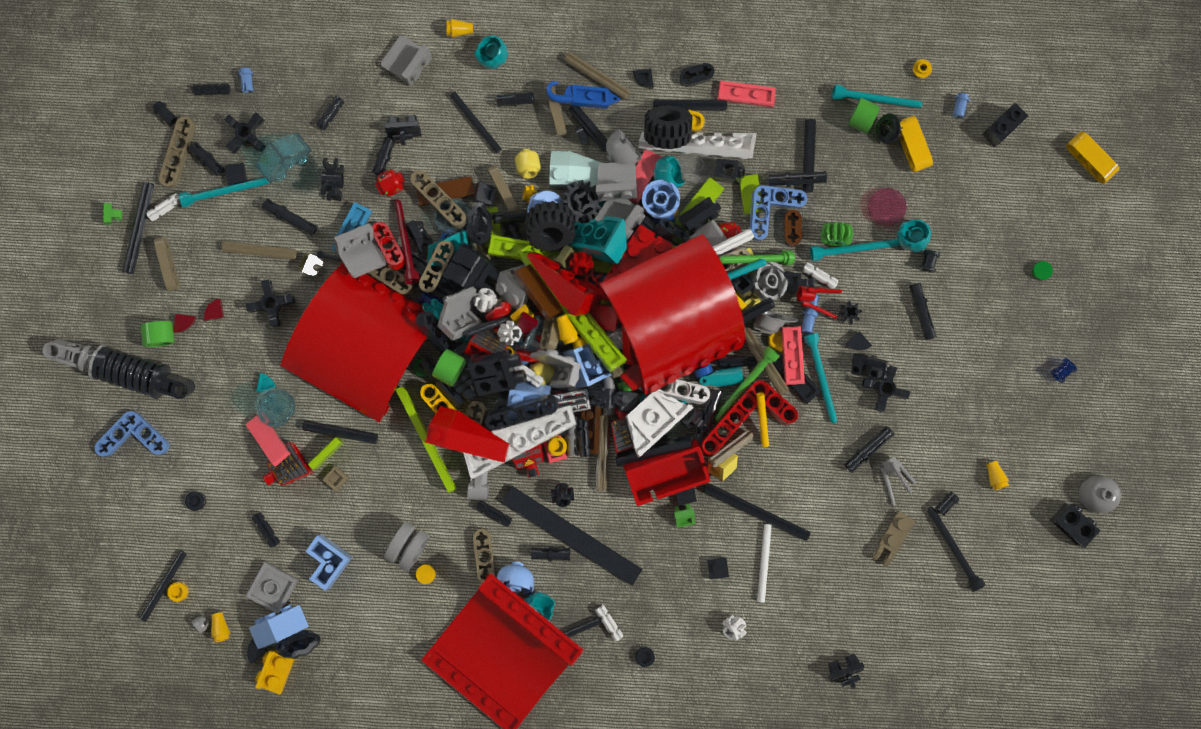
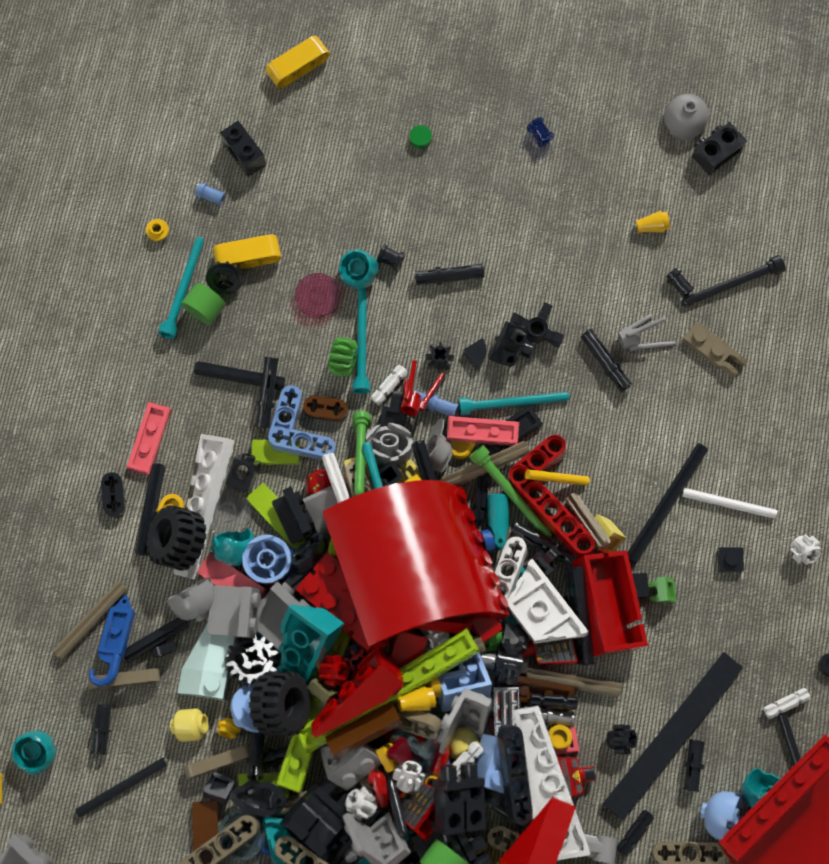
camera: 85 degrees left, 10 degrees down
(644, 78) = (104, 561): black tile -> none

